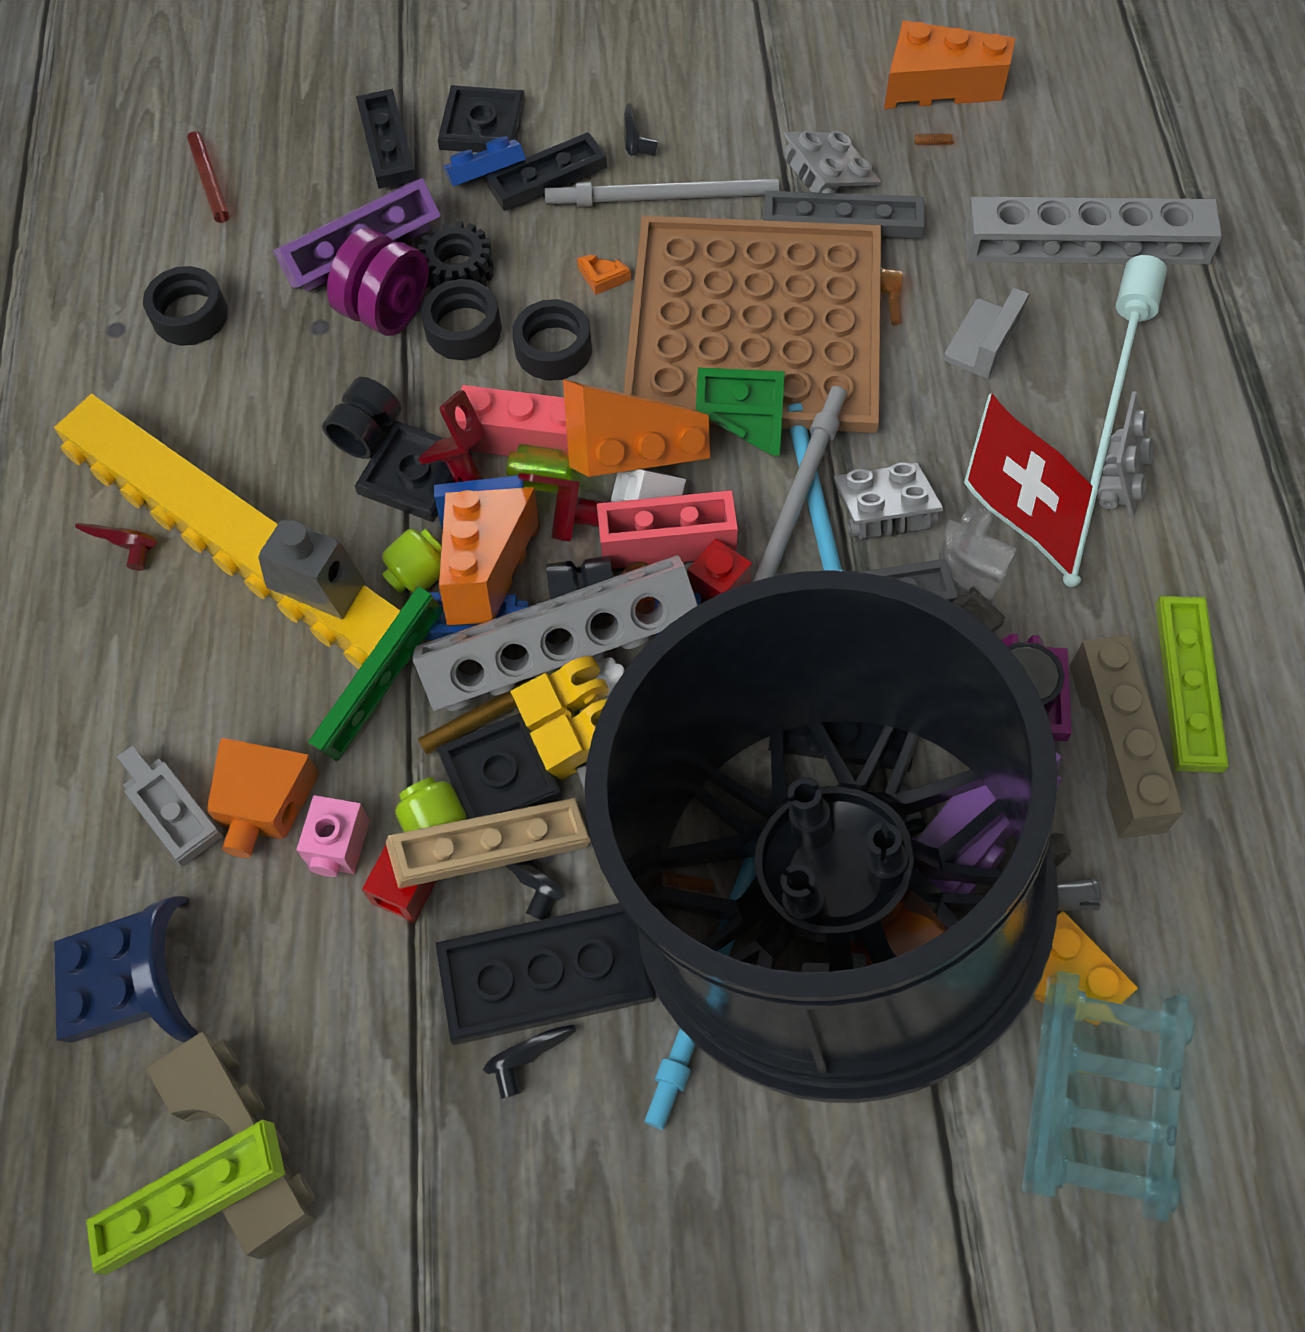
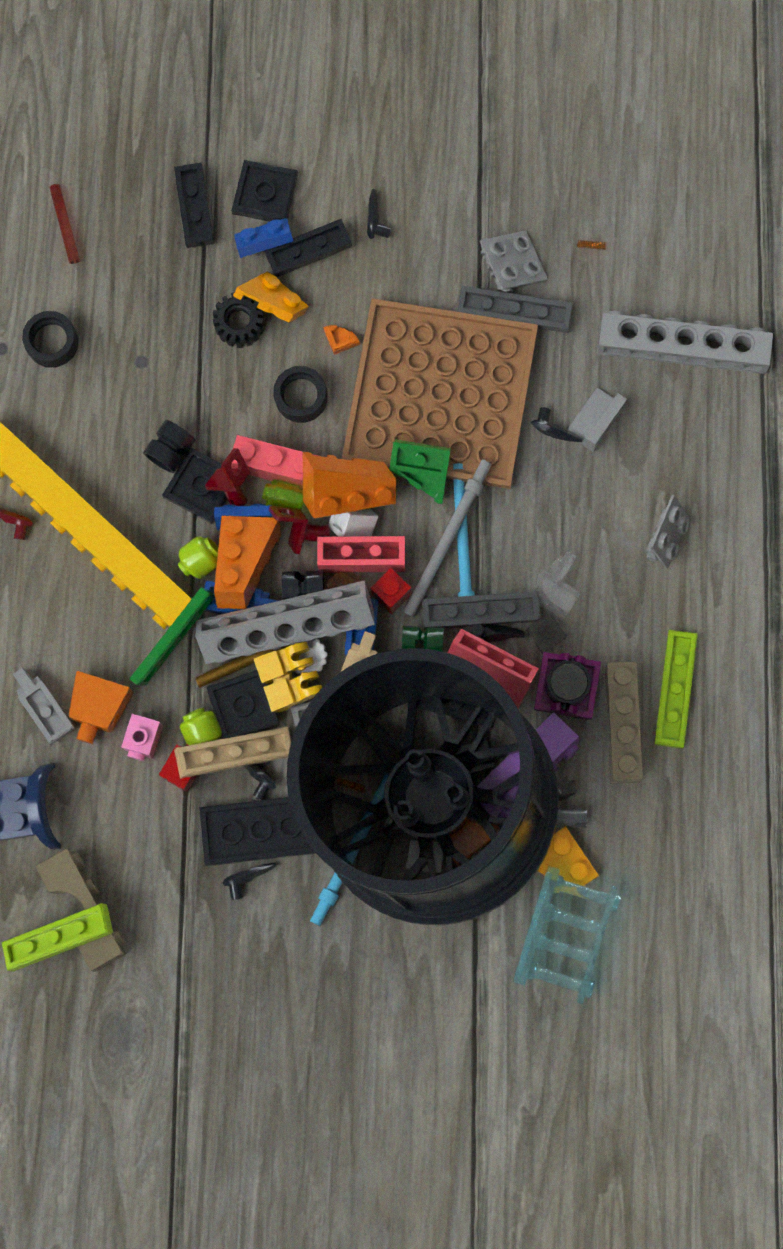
camera: 10 degrees right, 15 degrees up
(310, 568) = (133, 569): dark grey torso -> none
(377, 281) = (184, 343): magenta wheel -> none
(394, 214) = (171, 295): medium lavender brick -> none
(454, 296) = (239, 350): black tyre -> none
(501, 224) = (273, 297): none -> light orange wing
(585, 194) = (334, 271): light grey bar -> none
(885, 495) = (508, 540): light grey hinge -> none
(891, 284) = (538, 370): clear orange hand -> none
(925, 353) = (553, 430): none -> black bar
(947, 64) = (609, 184): orange wedge -> none
(1030, 480) = (602, 545): flag -> none

